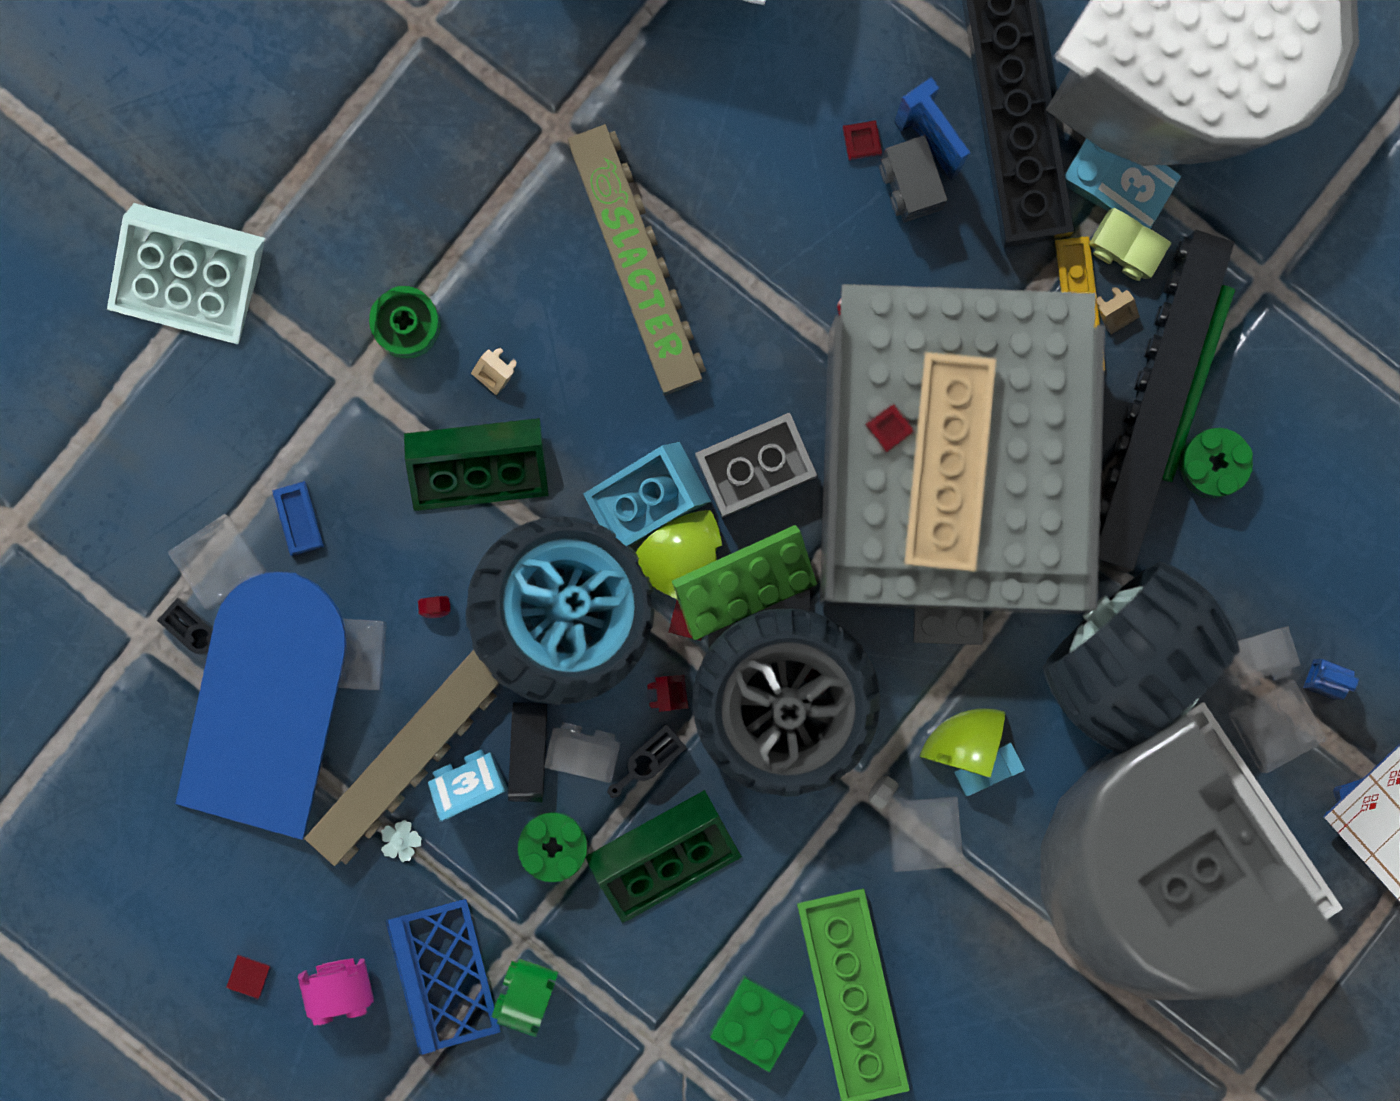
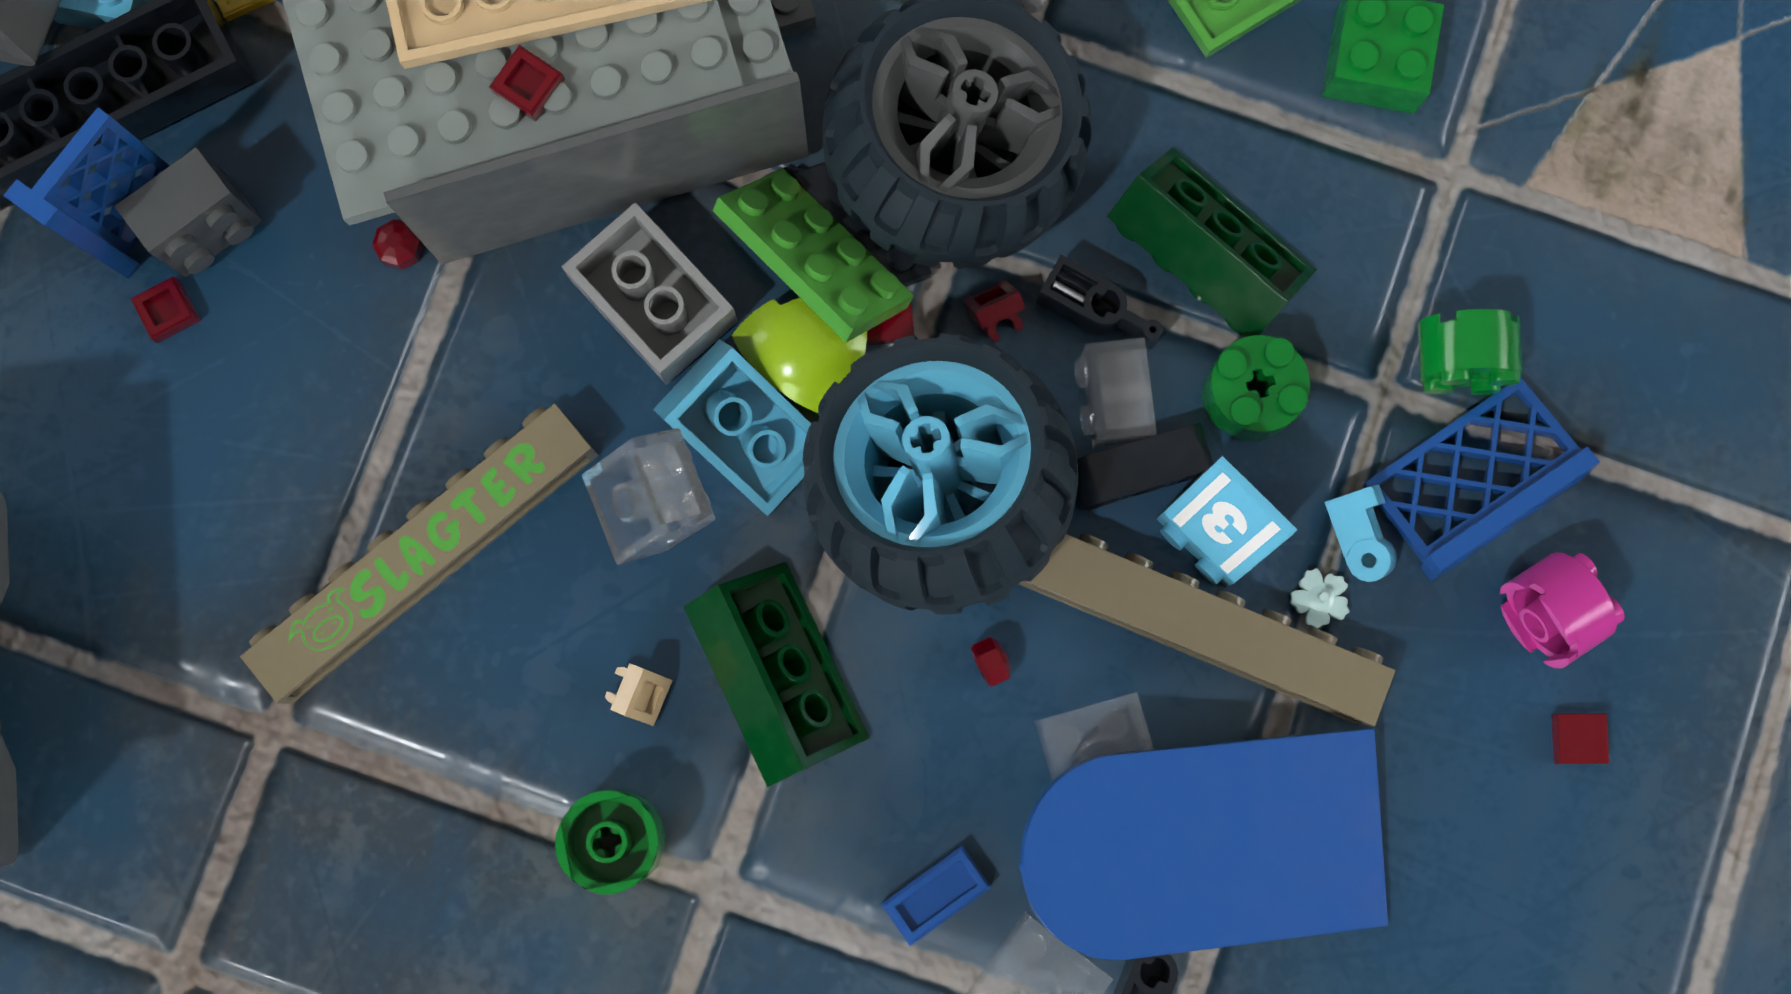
camera: 105 degrees left, 5 degrees down
(431, 880) = (1359, 534): none -> medium azure leg
(617, 419) = (648, 496): none -> clear brick

